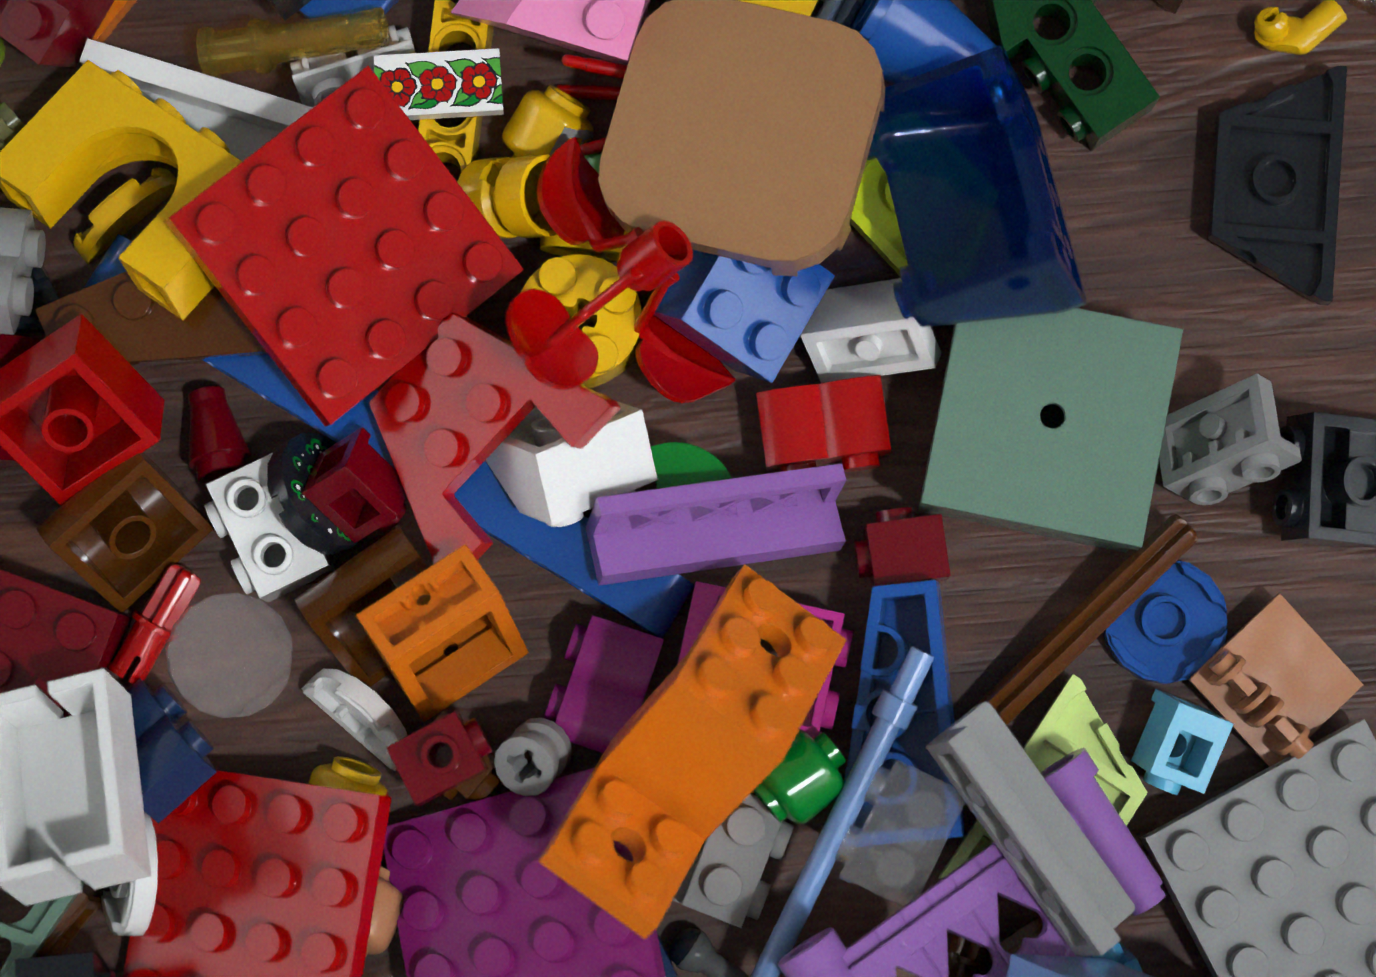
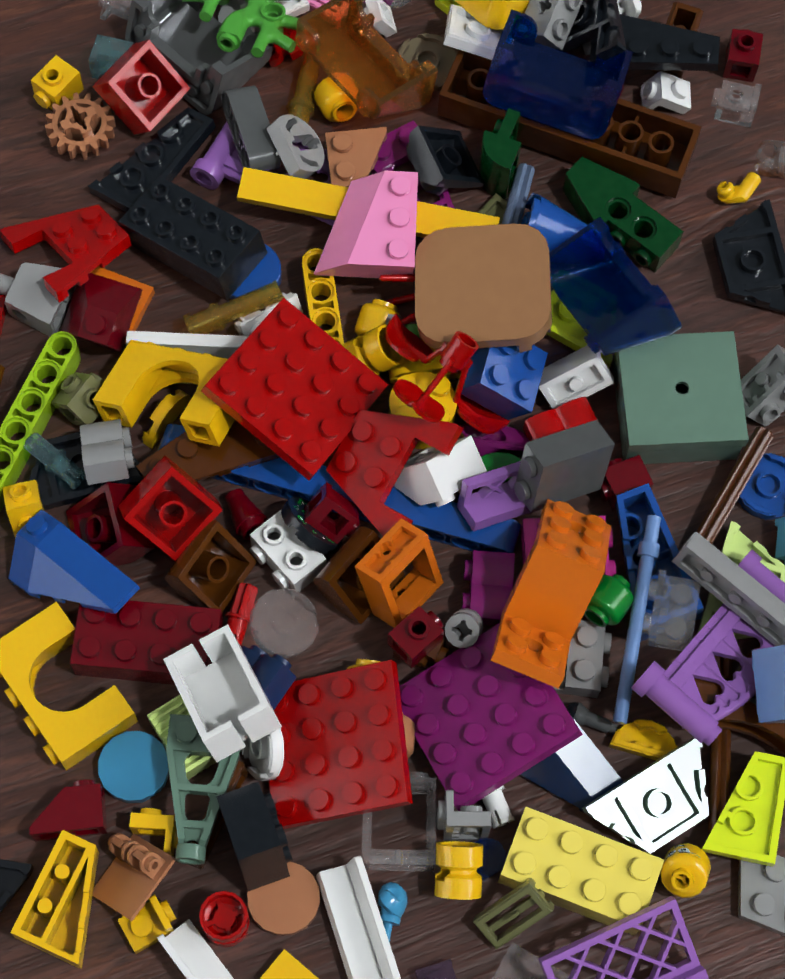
camera: 20 degrees left, 15 degrees down
(357, 711) = (362, 634): white tile -> none
(443, 83) = (325, 305): tile -> none
(718, 420) = (506, 438): none -> magenta cap
(789, 512) = (563, 465): none -> dark grey brick

